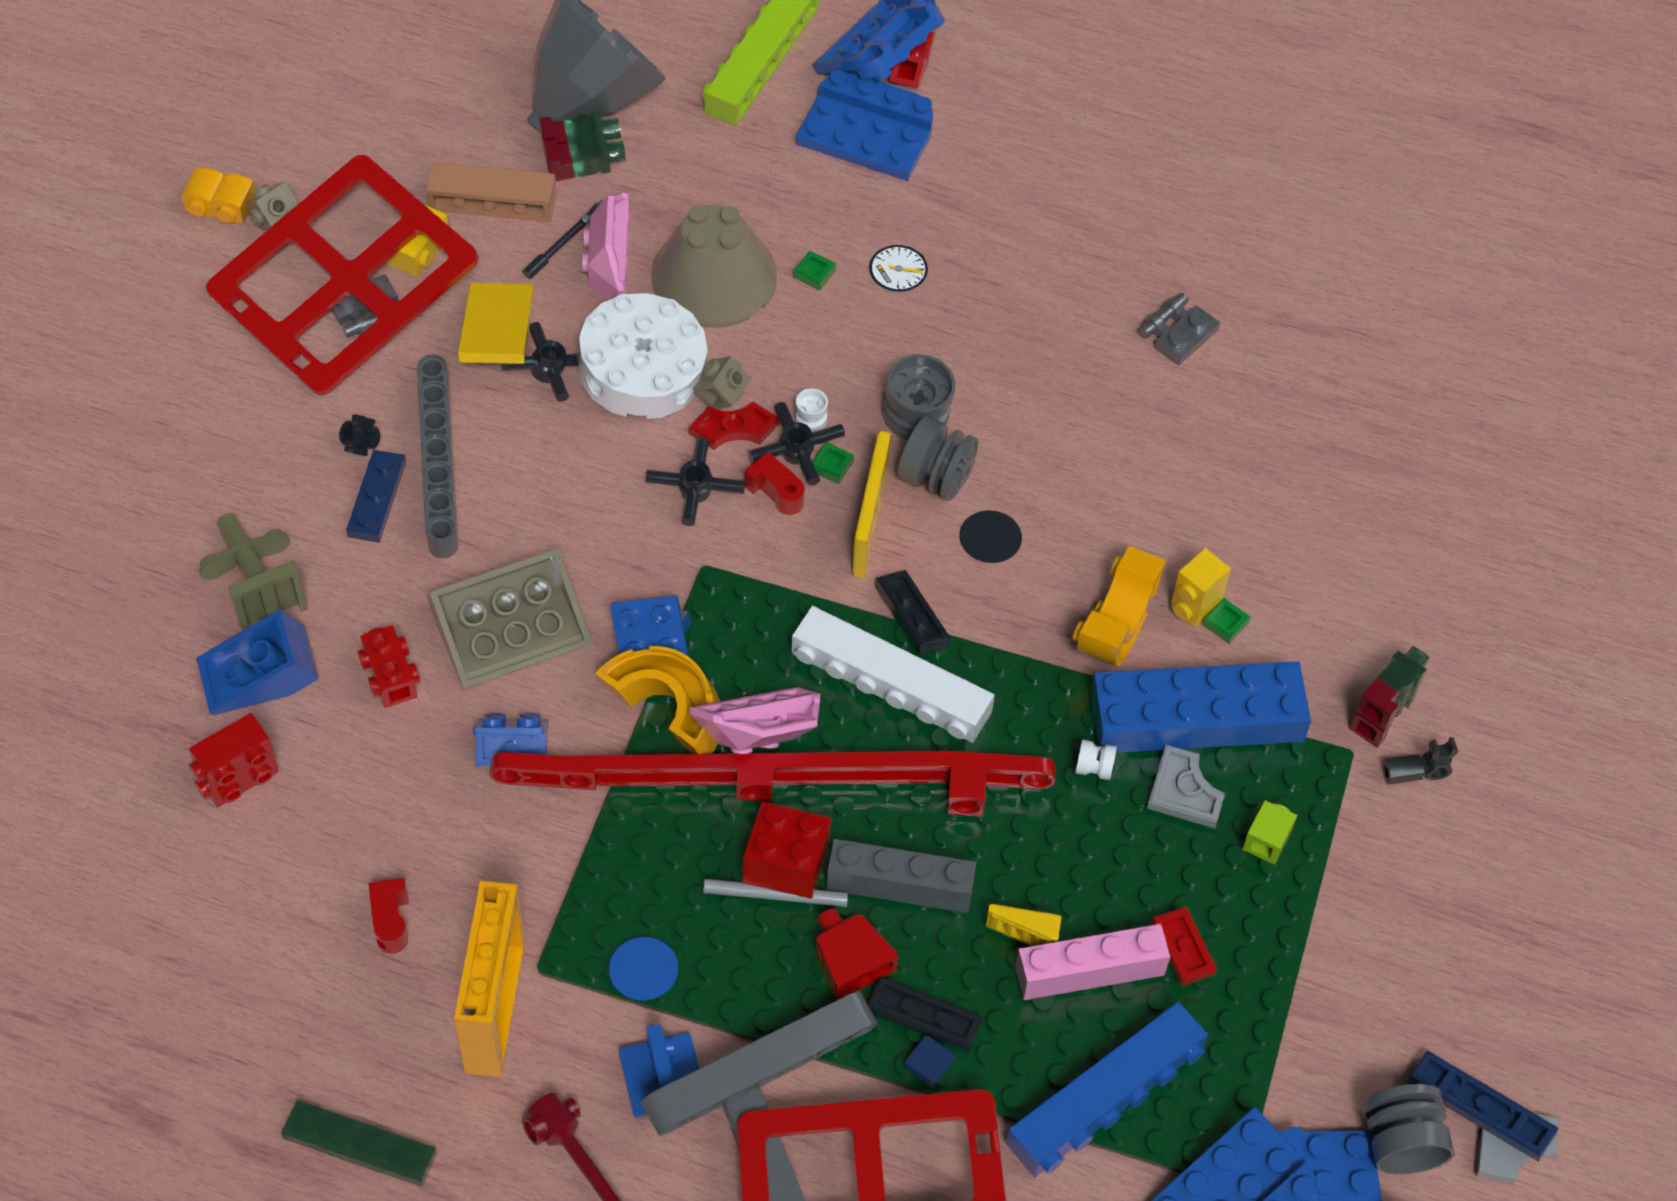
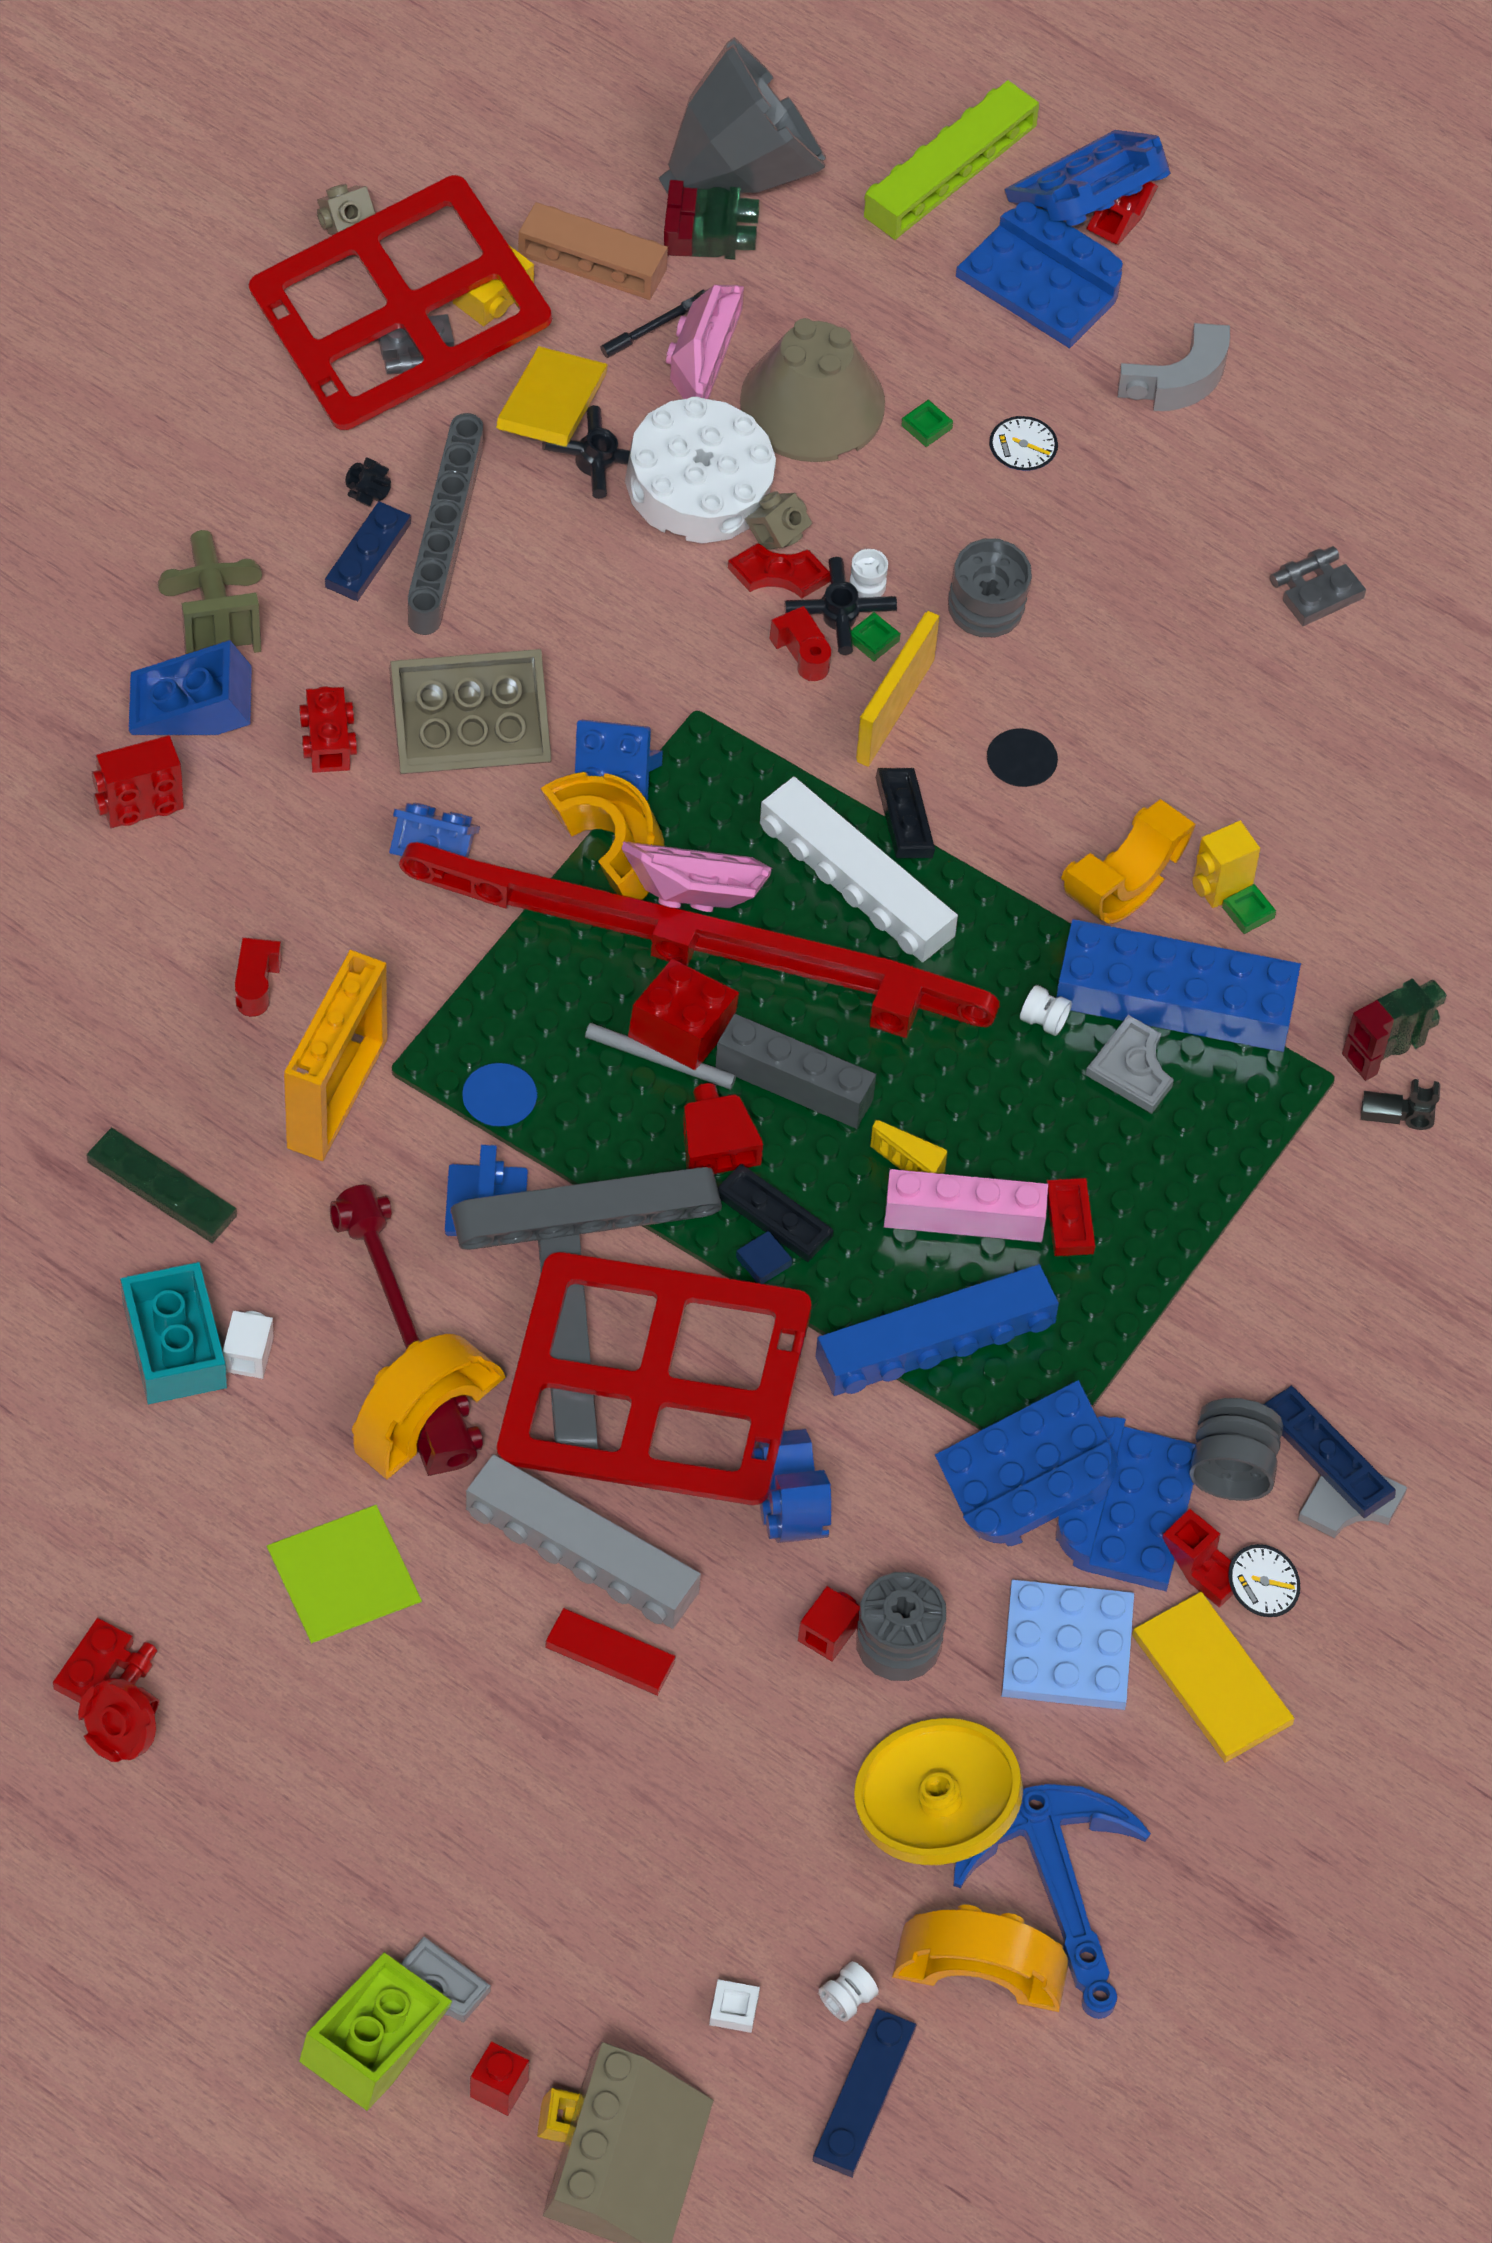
camera: 15 degrees right, 0 degrees up
(218, 195) = (289, 183): light orange brick -> none
(695, 491) = (715, 619): black bar -> none
(933, 456) = (987, 657): dark grey wheel -> none
(1011, 187) = (1182, 382): none -> light grey arch
(1270, 832) = (1205, 1129): lime brick -> none

